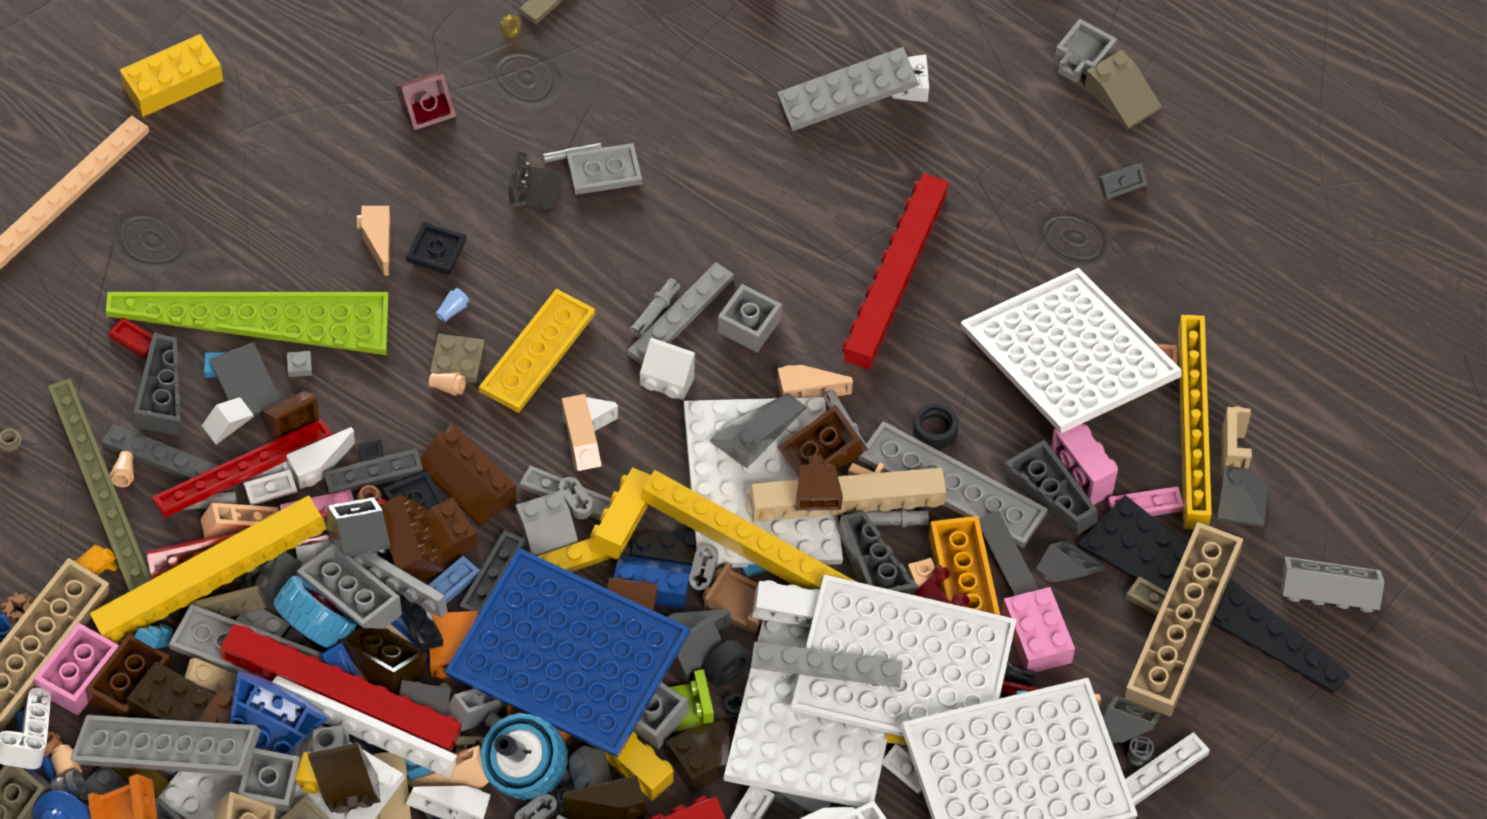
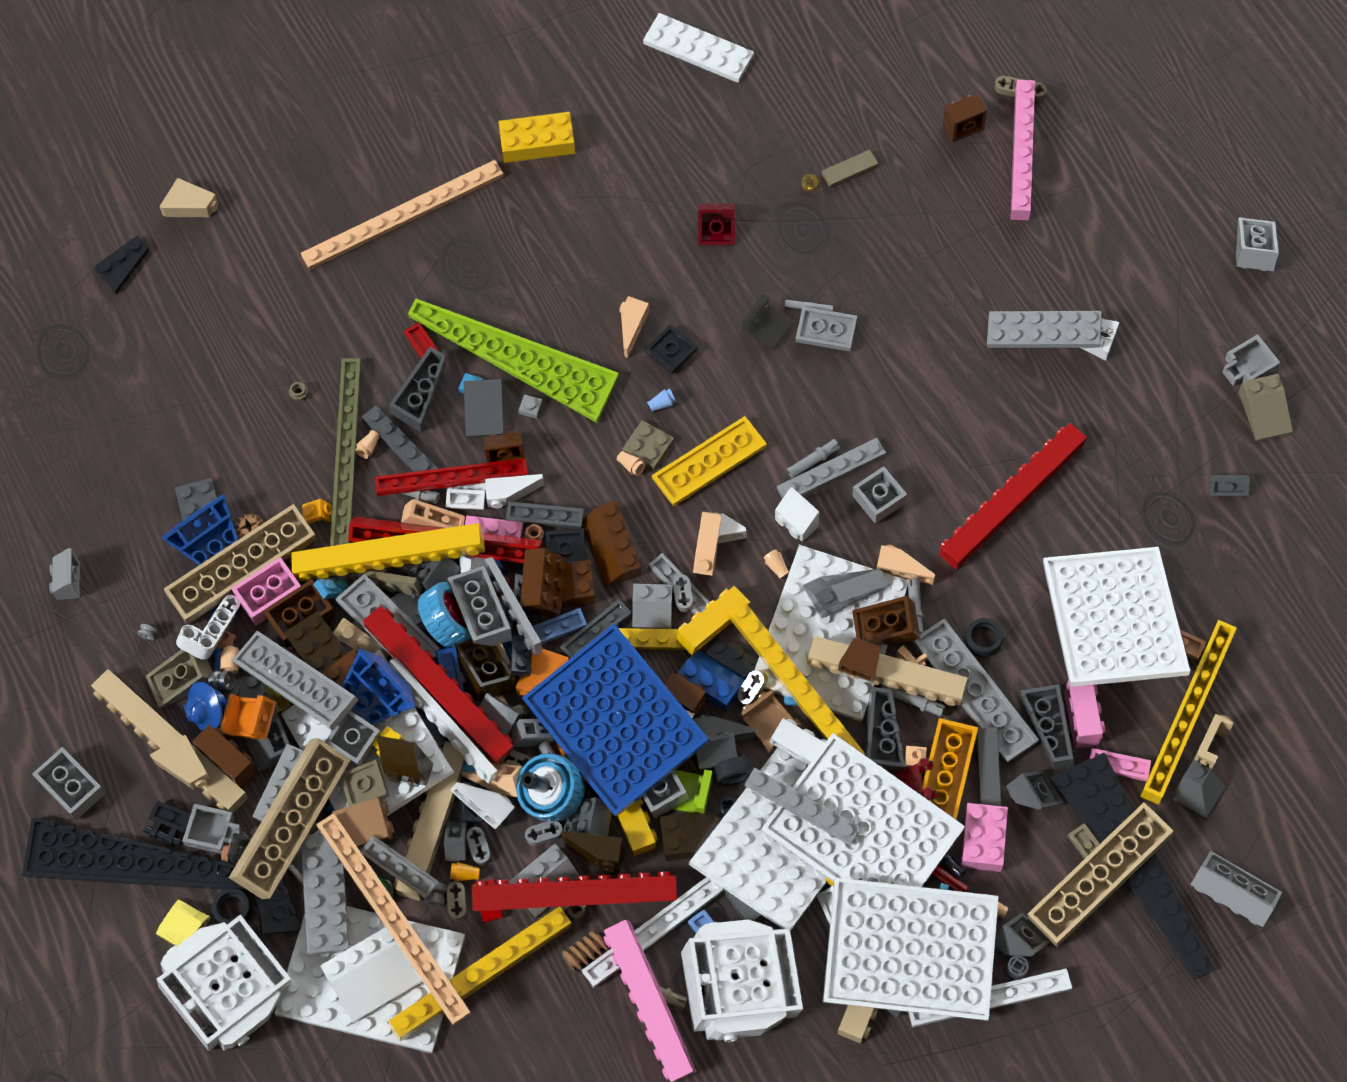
camera: 30 degrees right, 10 degrees up
(226, 419) = (457, 432): white slope -> none
(333, 734) = (416, 729): light grey brick -> none
(357, 527) = (504, 561): dark grey slope -> none
(370, 450) = (551, 497): black tile -> none
(666, 430) = (776, 563): none -> light nougat cone

